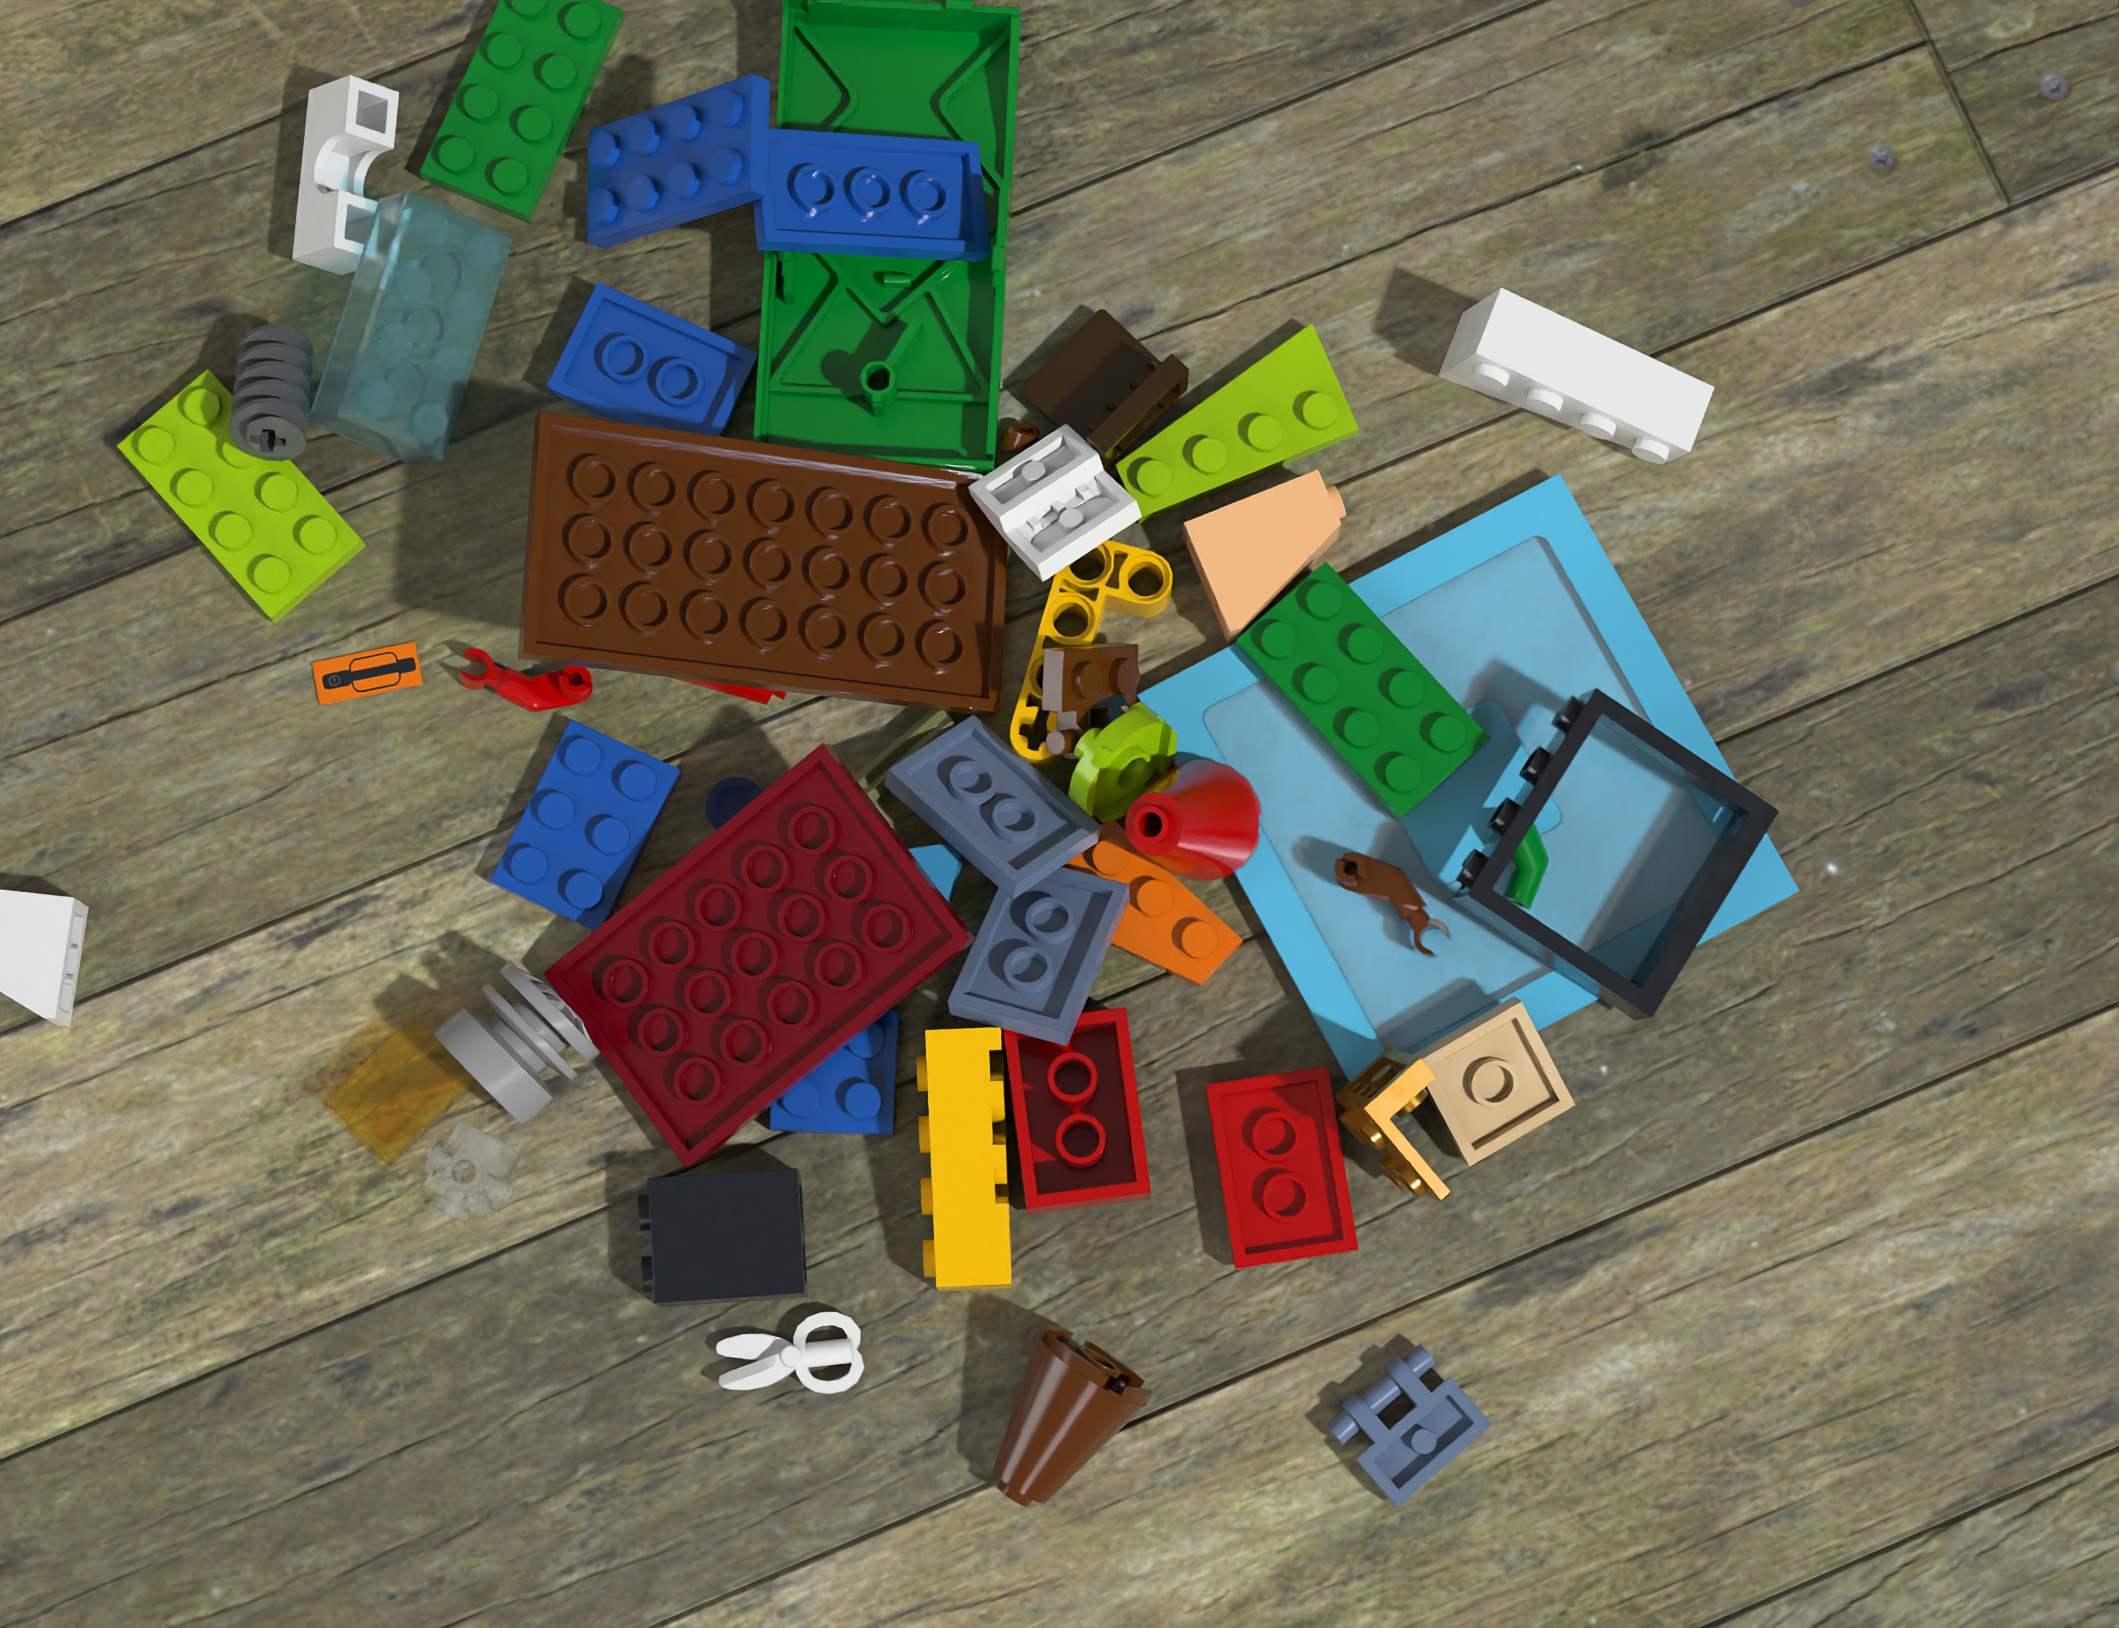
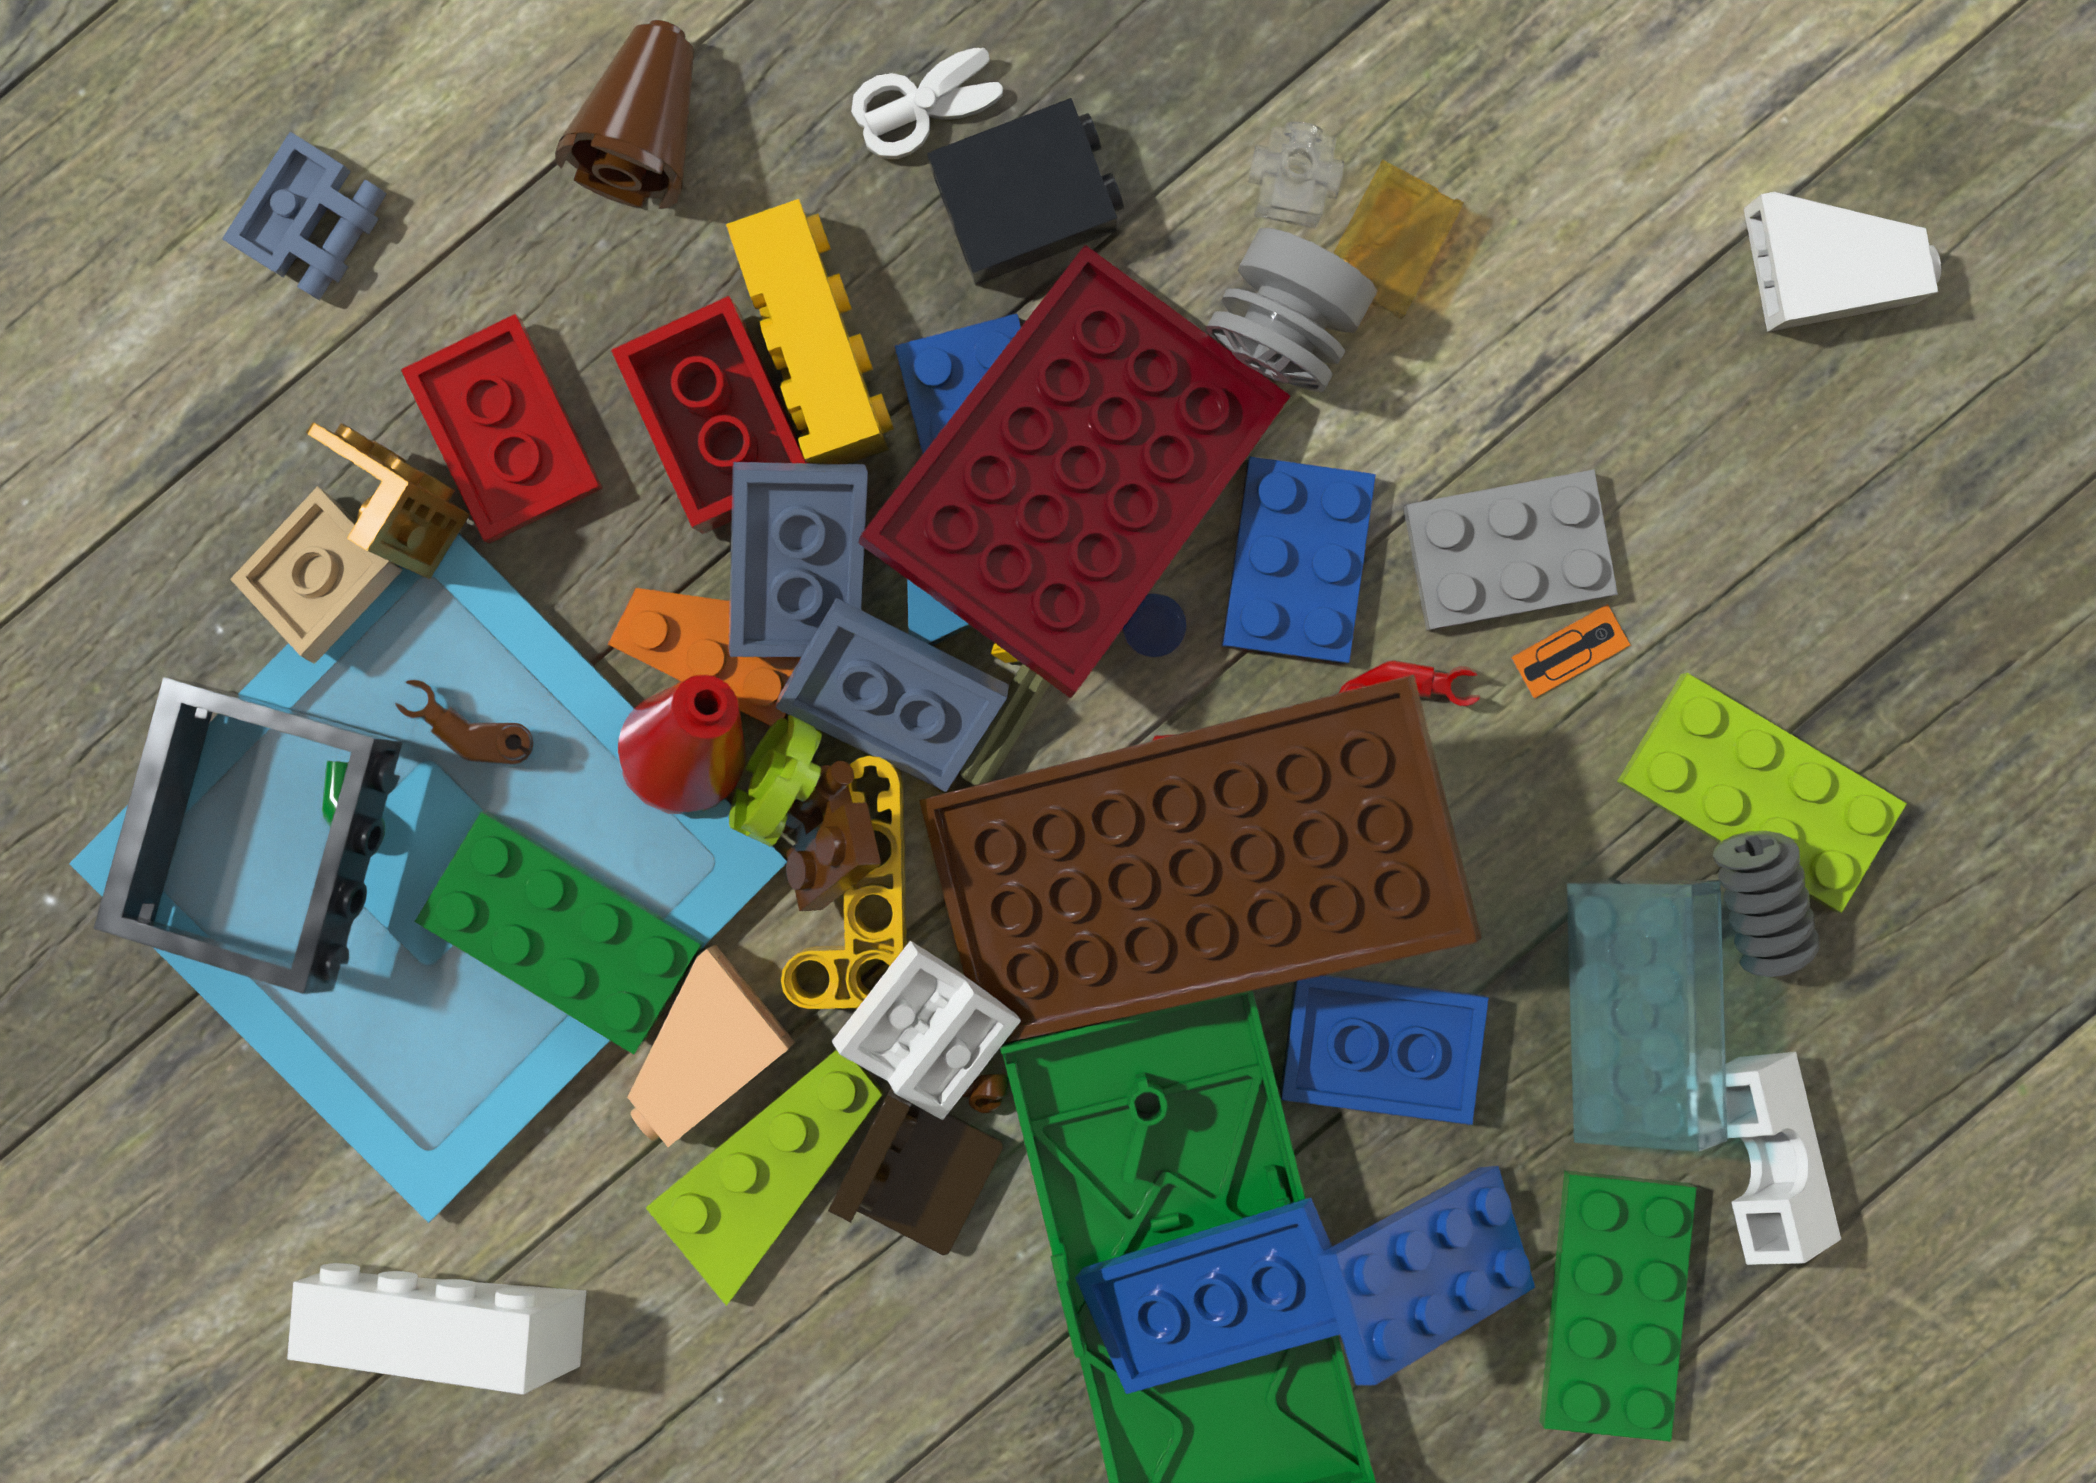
camera: 160 degrees right, 10 degrees up
(391, 778) = (1510, 550): none -> light grey plate

